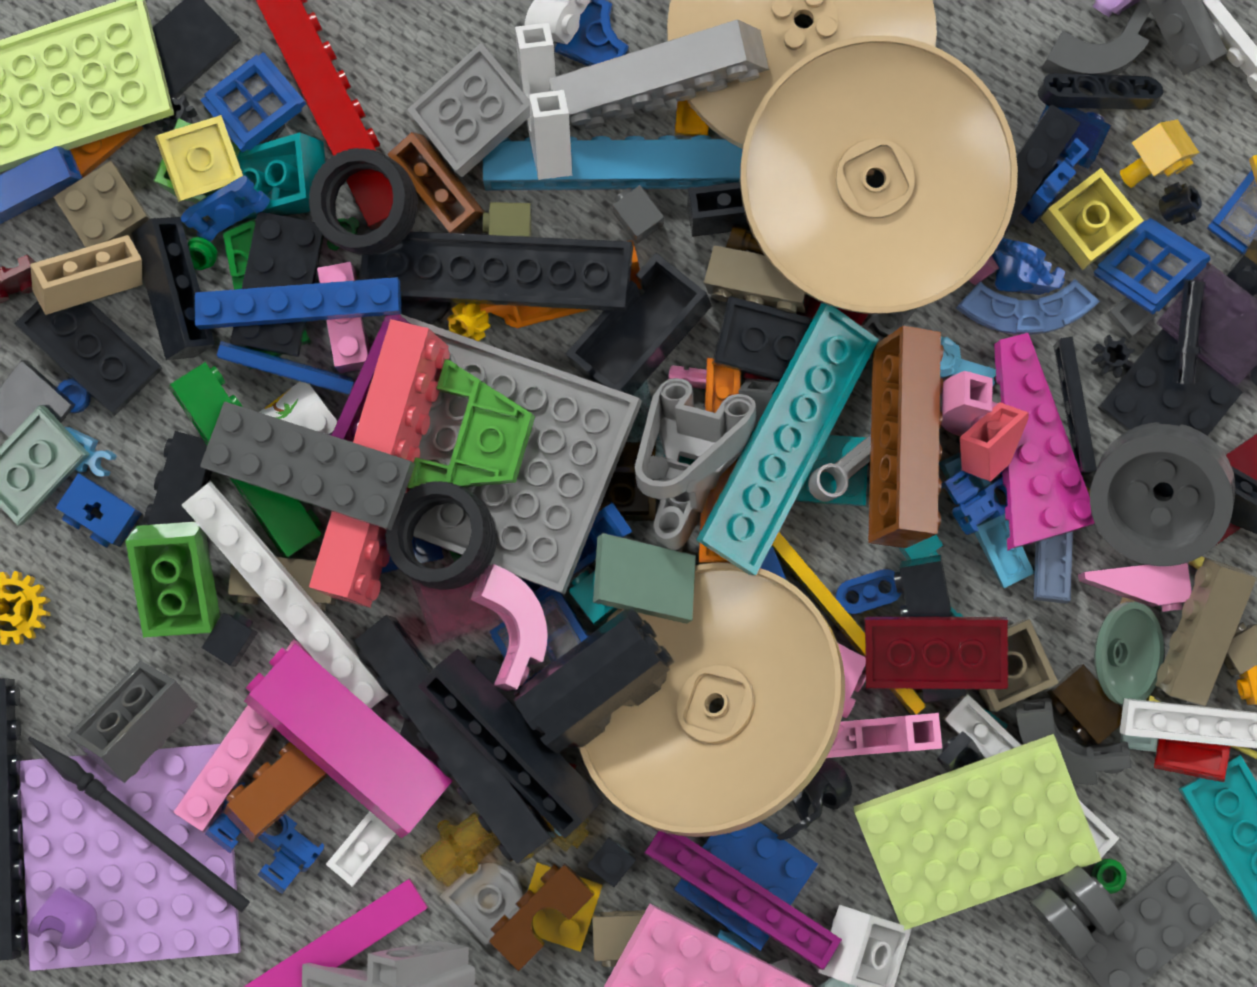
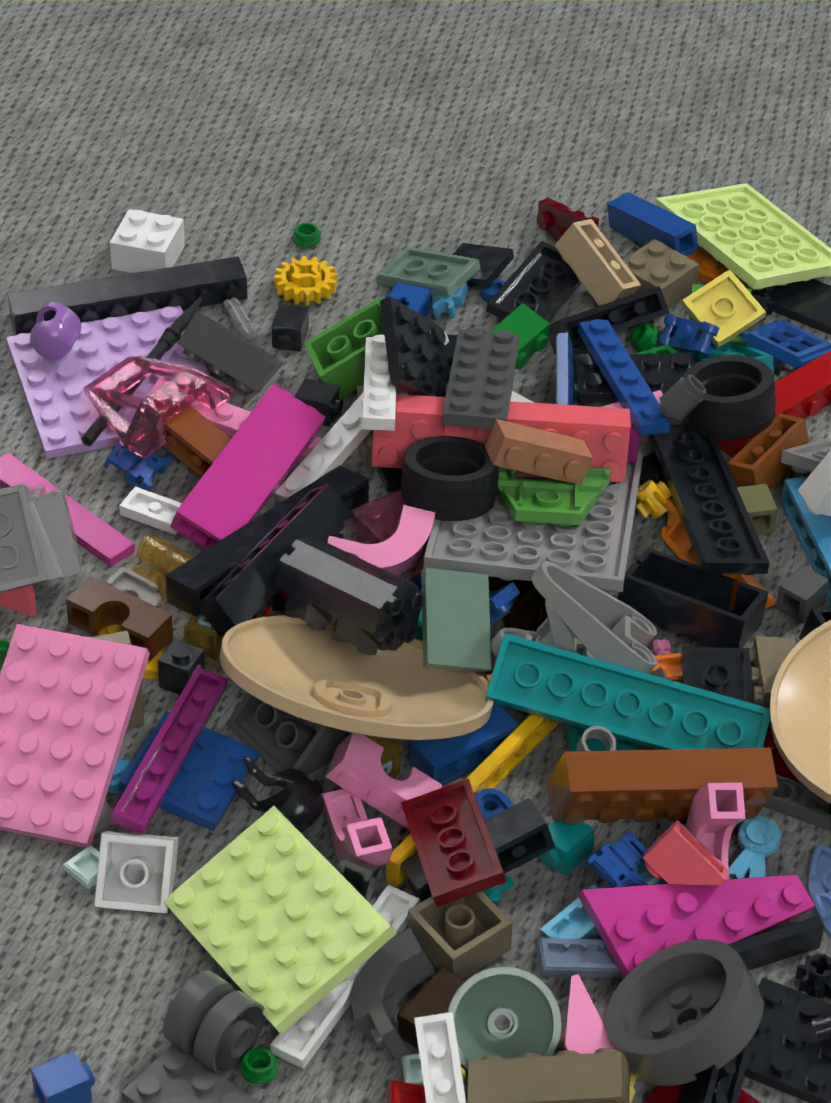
camera: 75 degrees right, 40 degrees down
(57, 696) = (239, 319): none -> light grey axle
(94, 644) = (290, 327): none -> black brick
(241, 805) = (147, 427): none -> clear pink windscreen
(265, 530) = (414, 350): none -> black plate
(298, 580) = (379, 394): none -> white plate
(382, 257) = (682, 398): none -> dark grey brick
(443, 436) = (538, 452): none -> nougat brick

